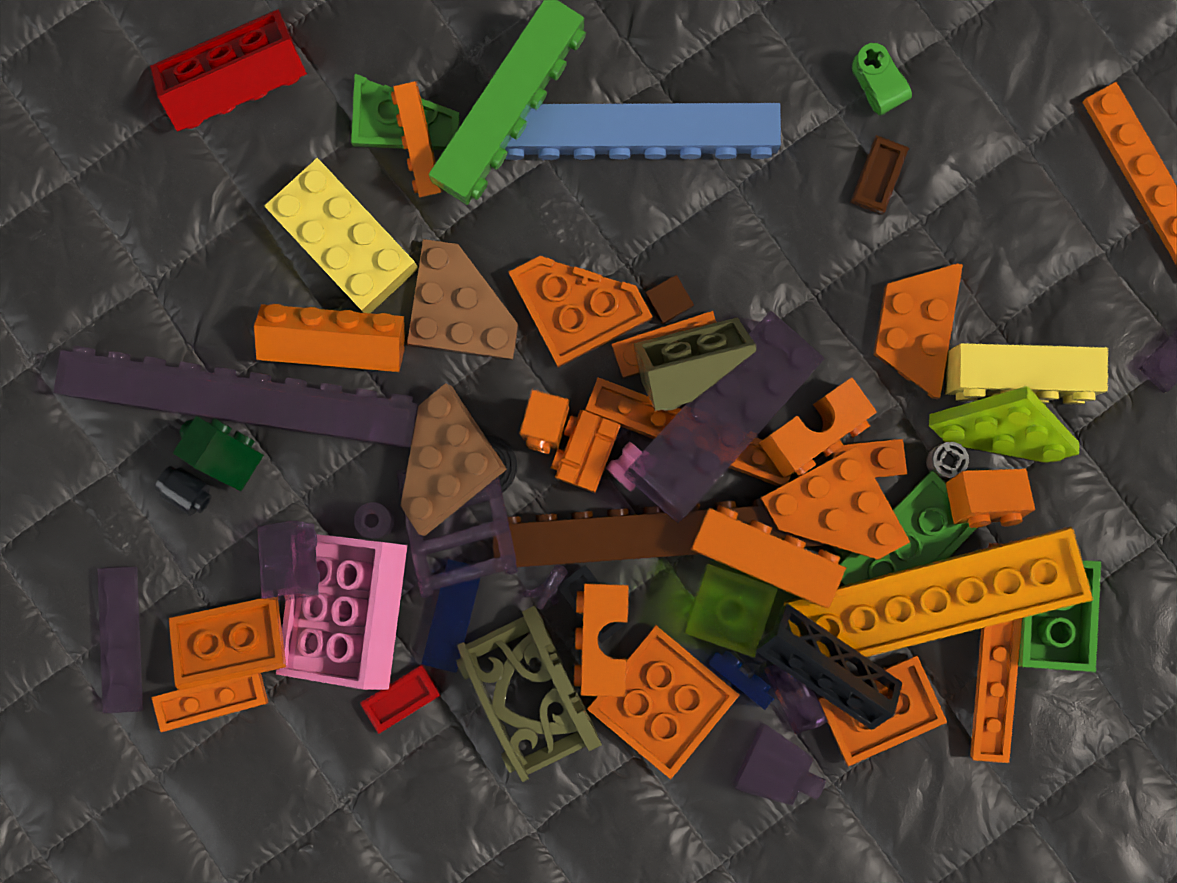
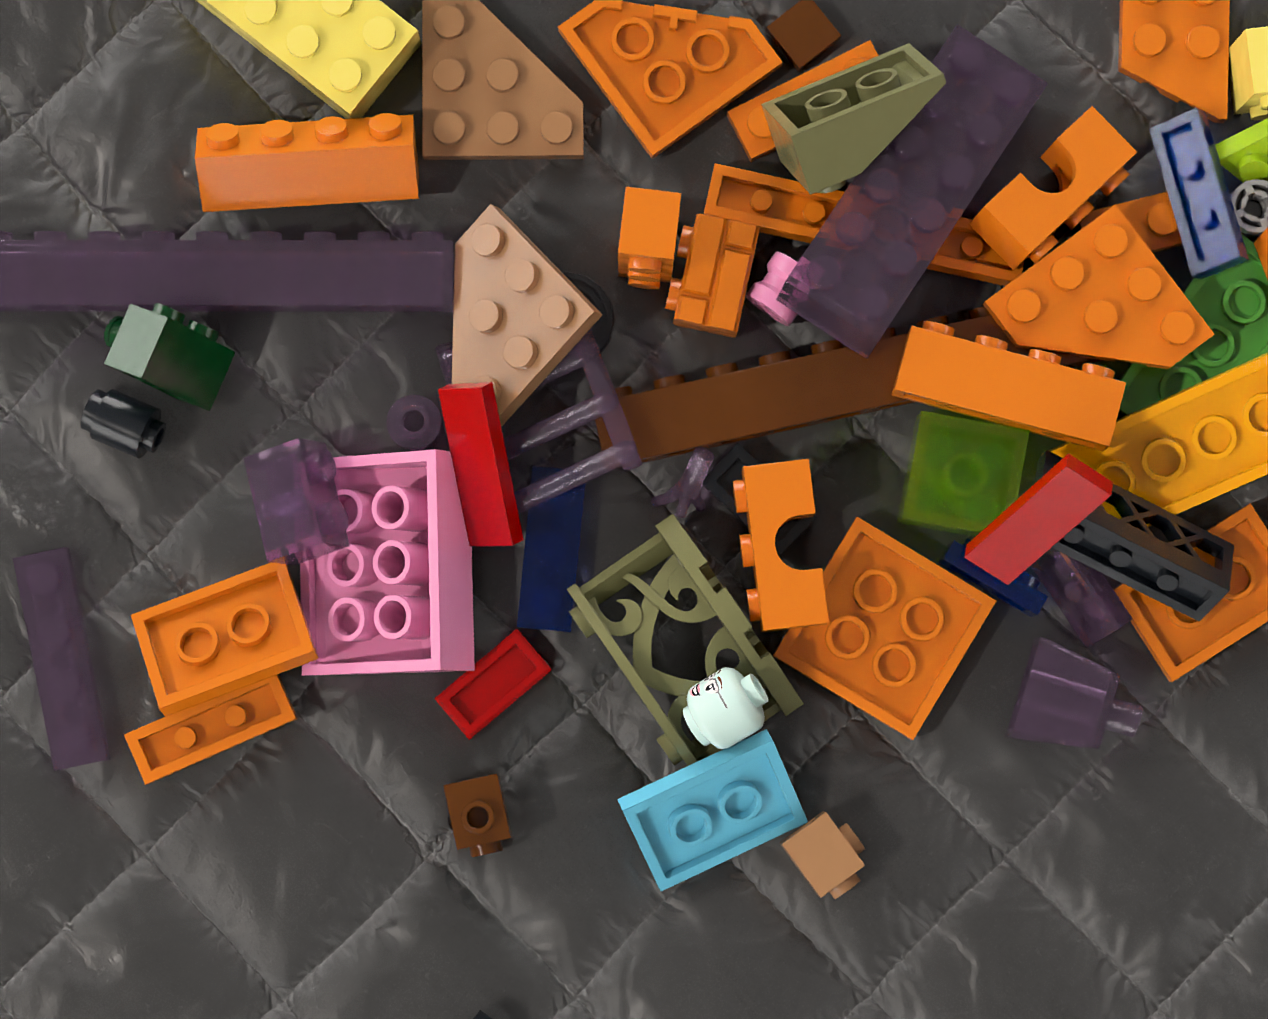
camera: 10 degrees left, 0 degrees up
(376, 784) = (478, 814): none -> reddish brown brick
(412, 555) = (480, 464): none -> red tile
(530, 806) = (713, 810): none -> medium azure plate
(548, 742) = (725, 708): none -> light aqua head
(601, 846) = (826, 855): none -> medium nougat brick
(774, 651) = (1038, 519): none -> red tile
(913, 446) = (1198, 194): none -> clear blue plate

